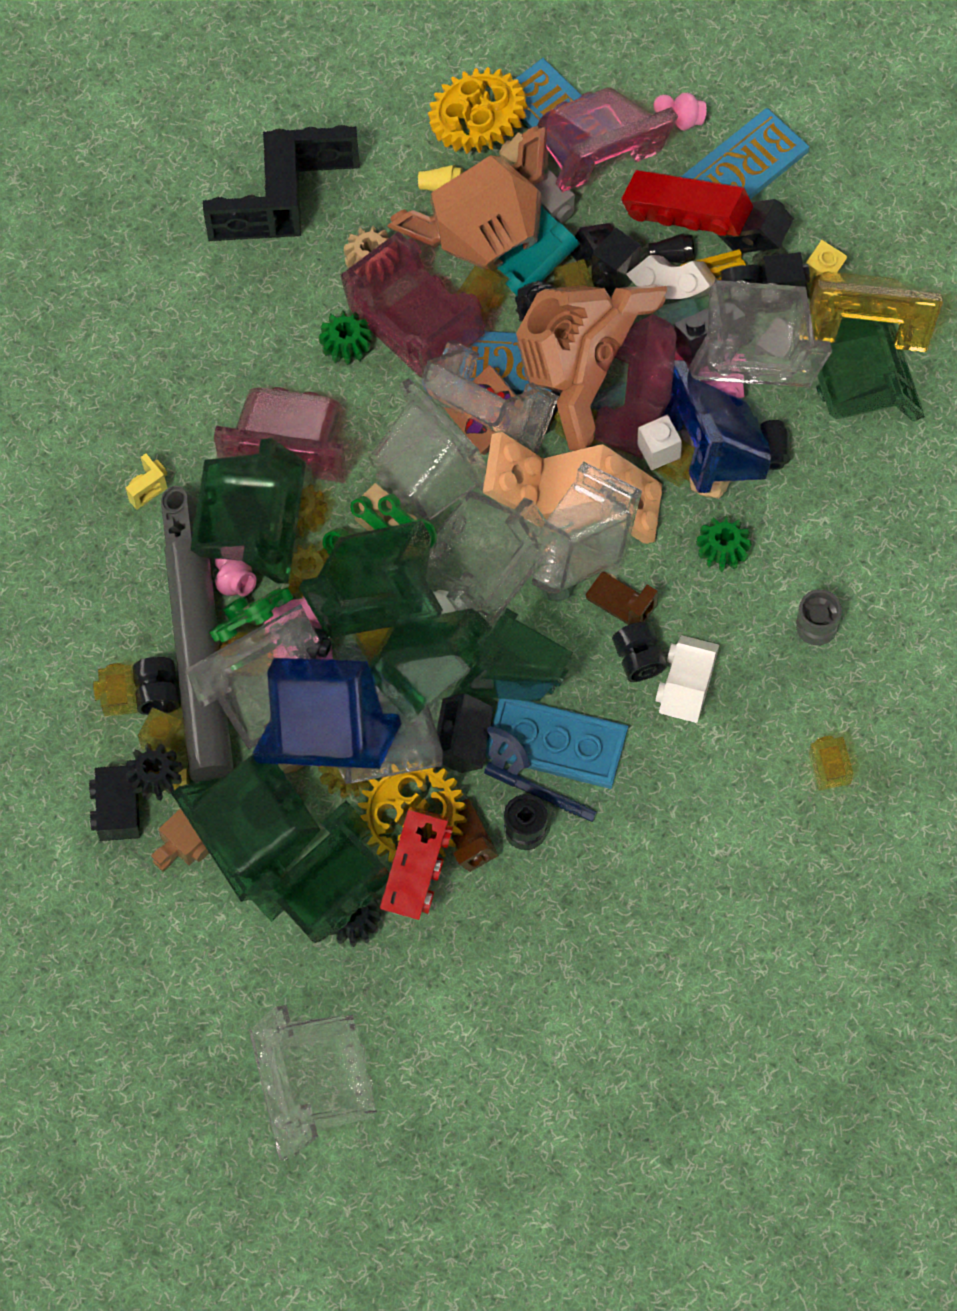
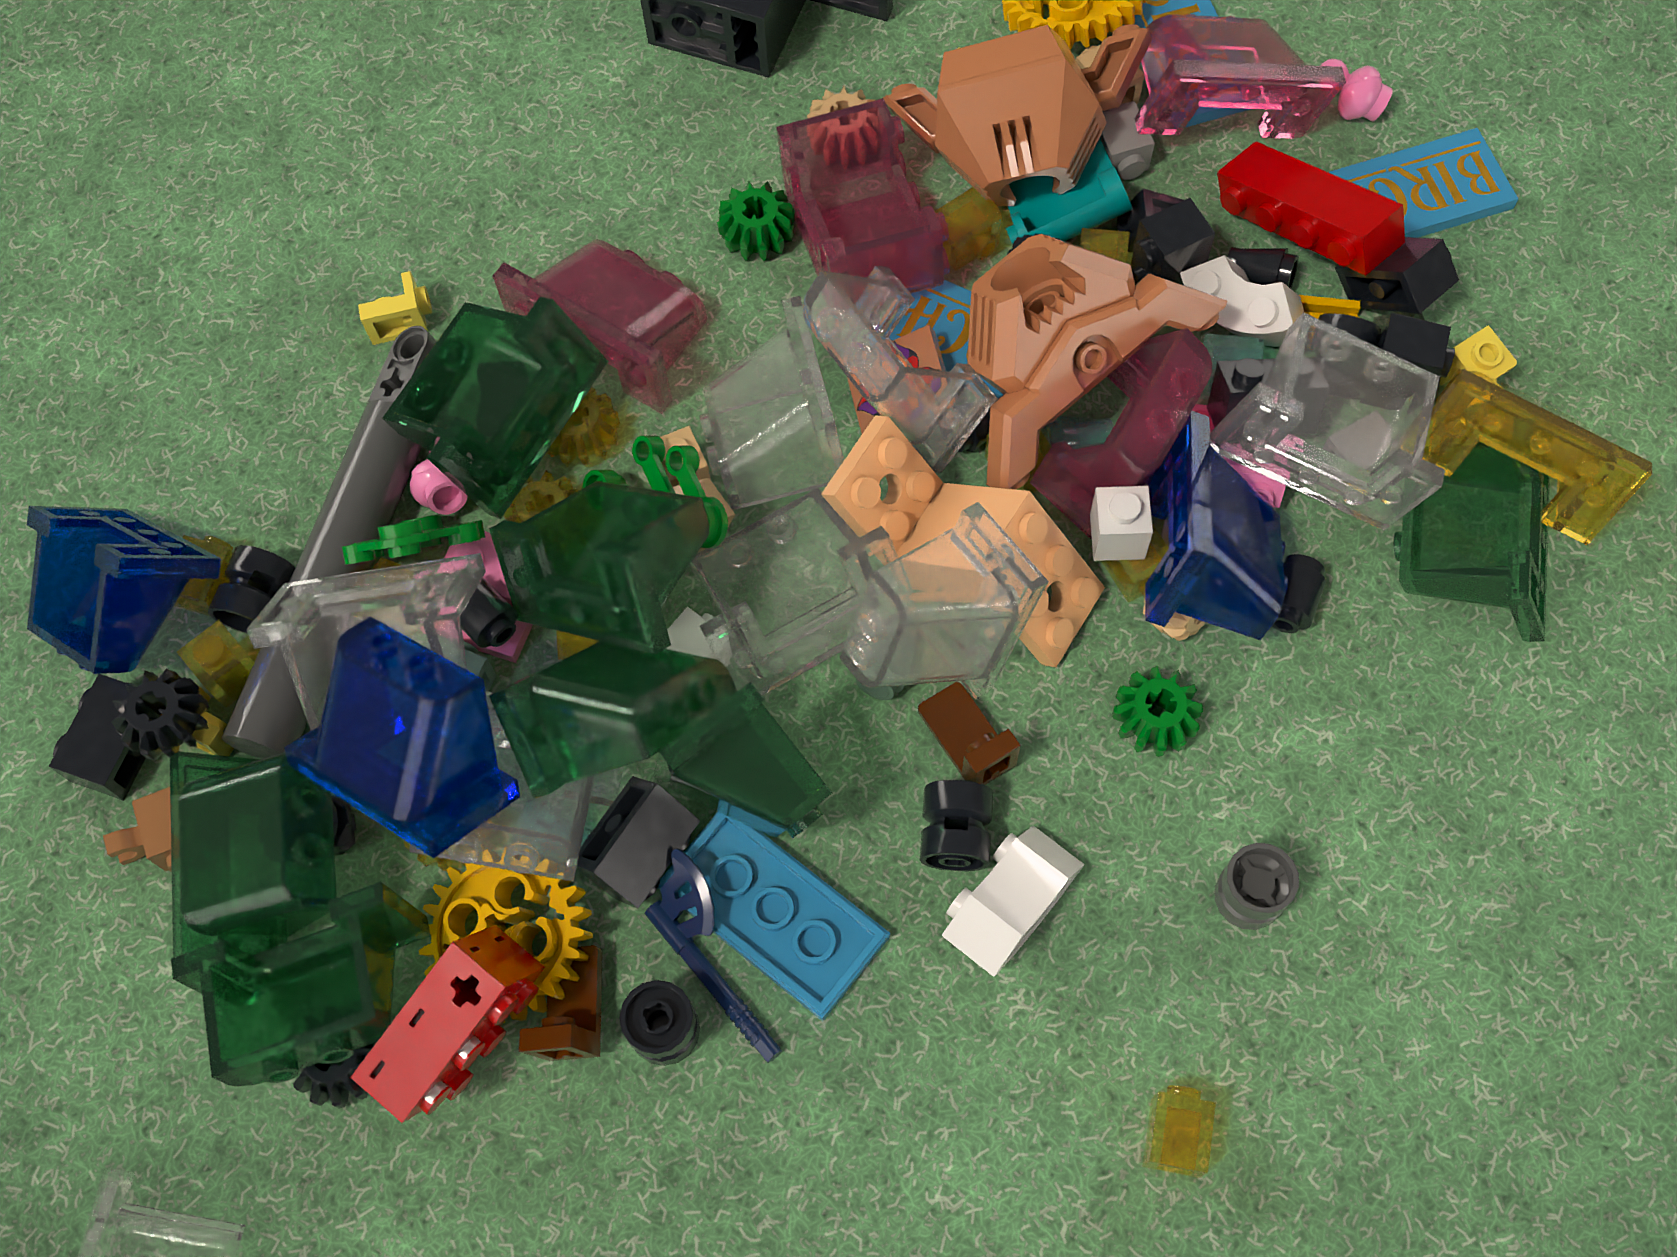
camera: 25 degrees right, 0 degrees up
(72, 714) = (107, 582): none -> clear blue windscreen

